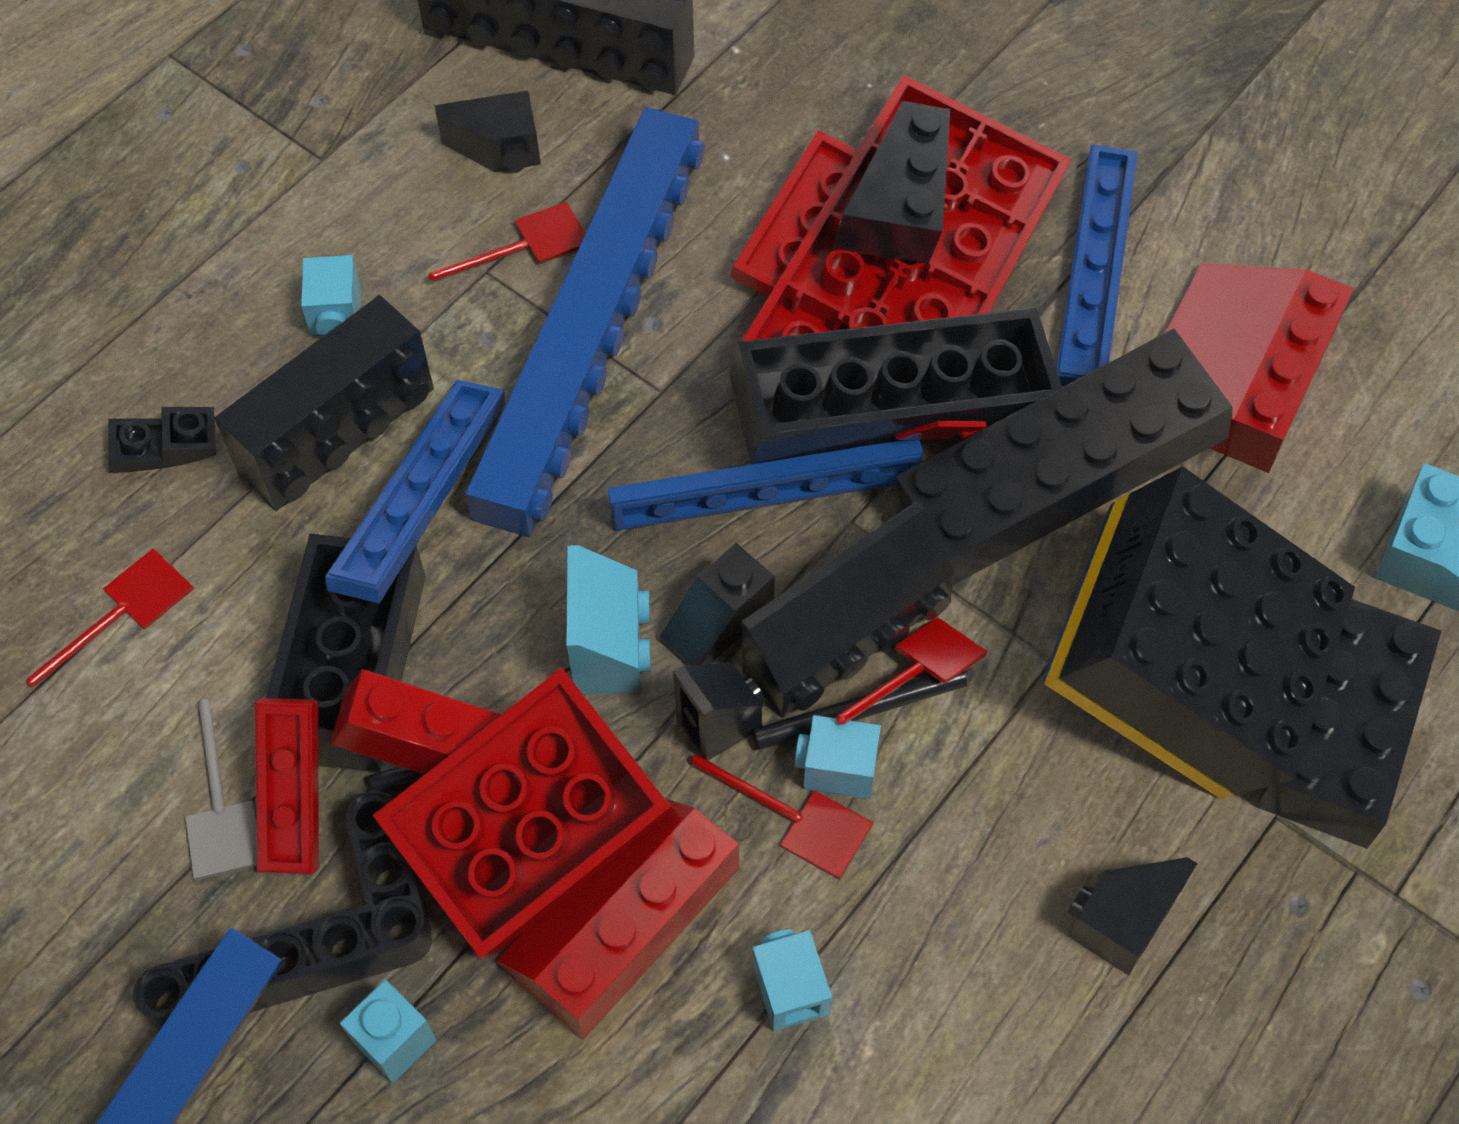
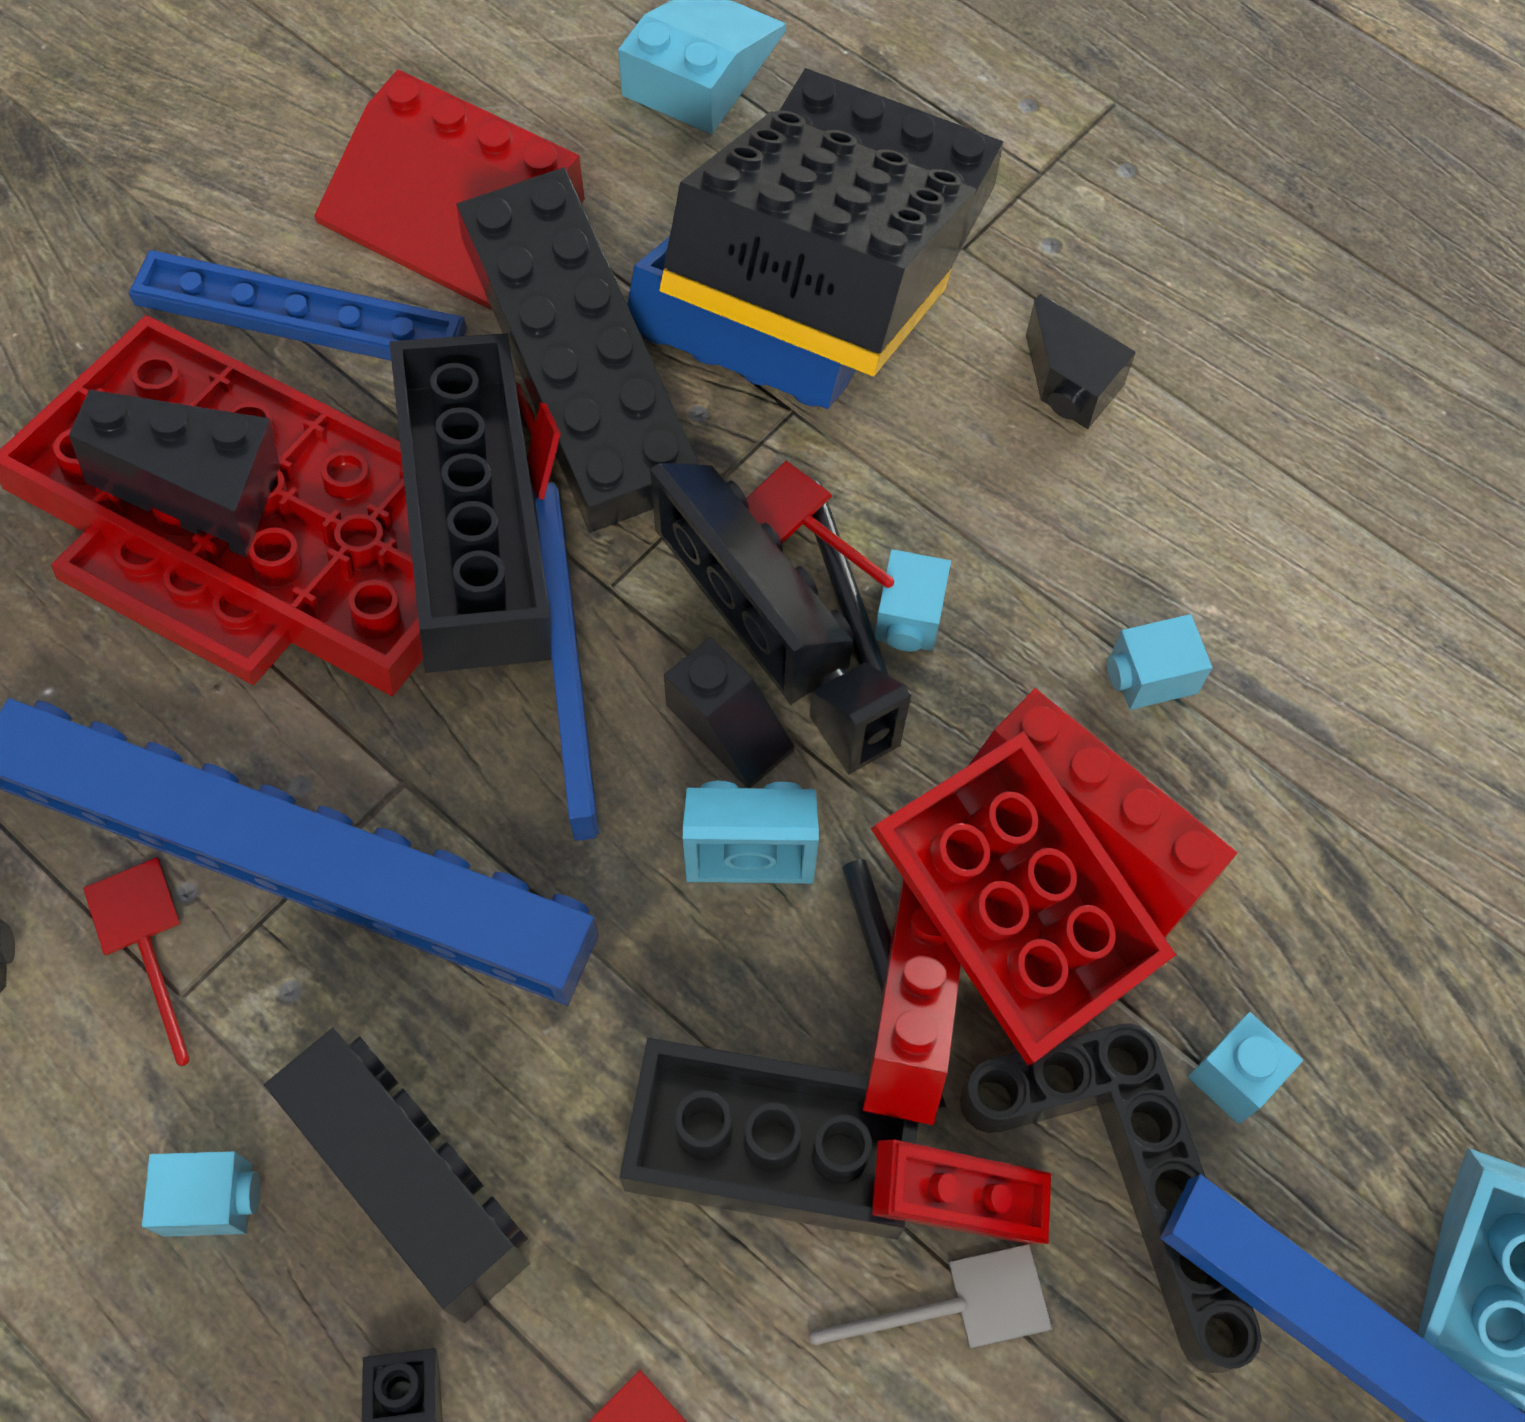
camera: 90 degrees left, 5 degrees up
(415, 492) = (558, 1046): blue tile -> none
(821, 833) = (982, 633): red piece -> none

